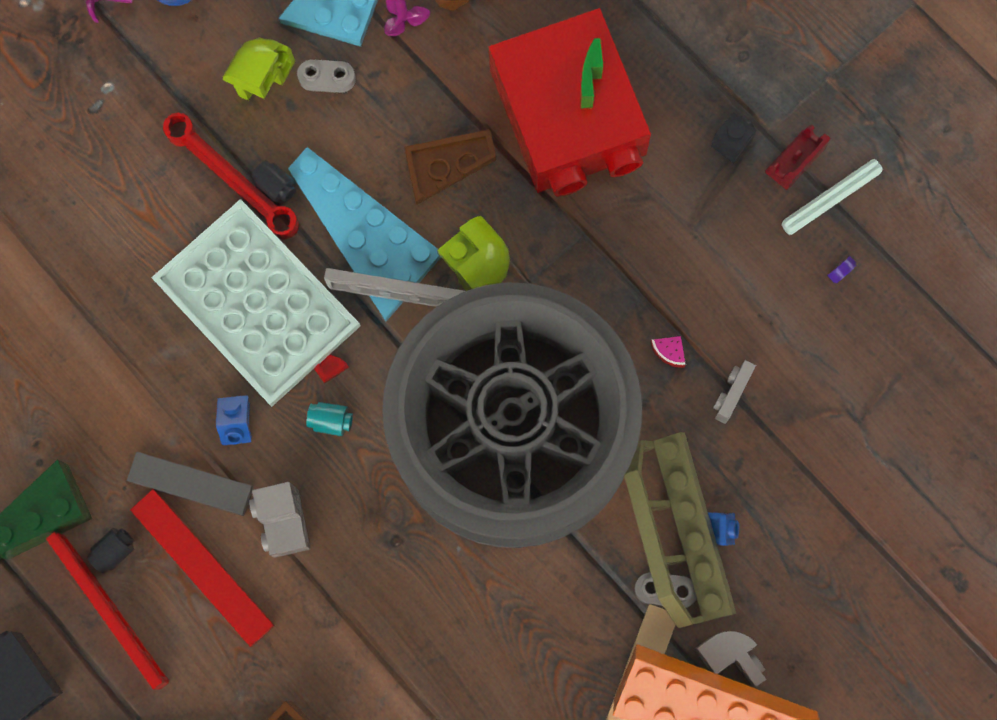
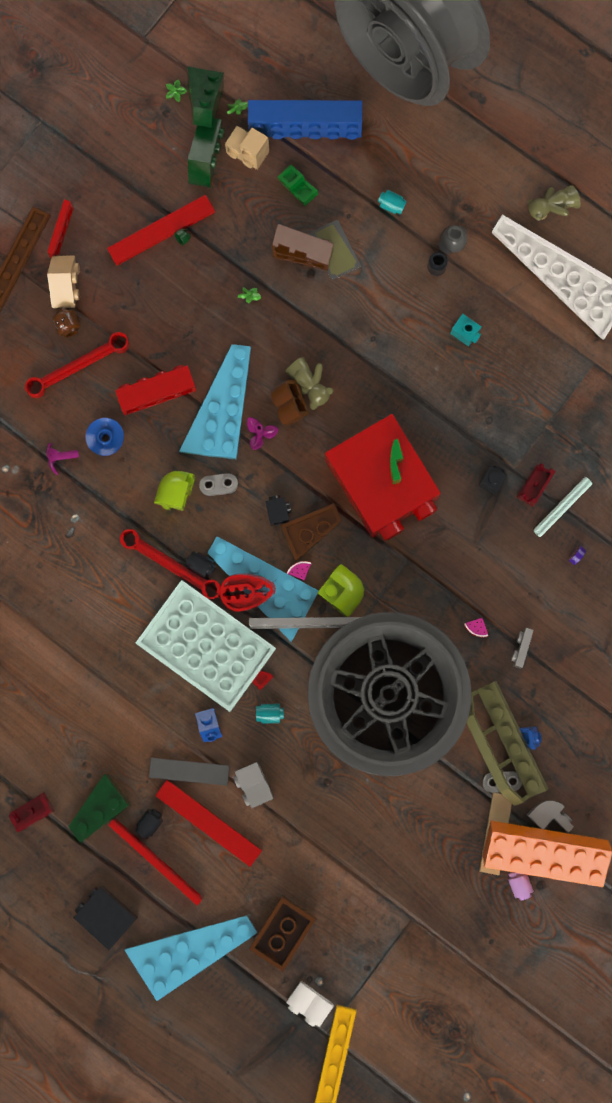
camera: 10 degrees left, 5 degrees up
(330, 217) = (242, 582): none -> red piece
(404, 125) = (278, 510): none -> black brick
(420, 217) = (299, 570): none -> dark pink tile

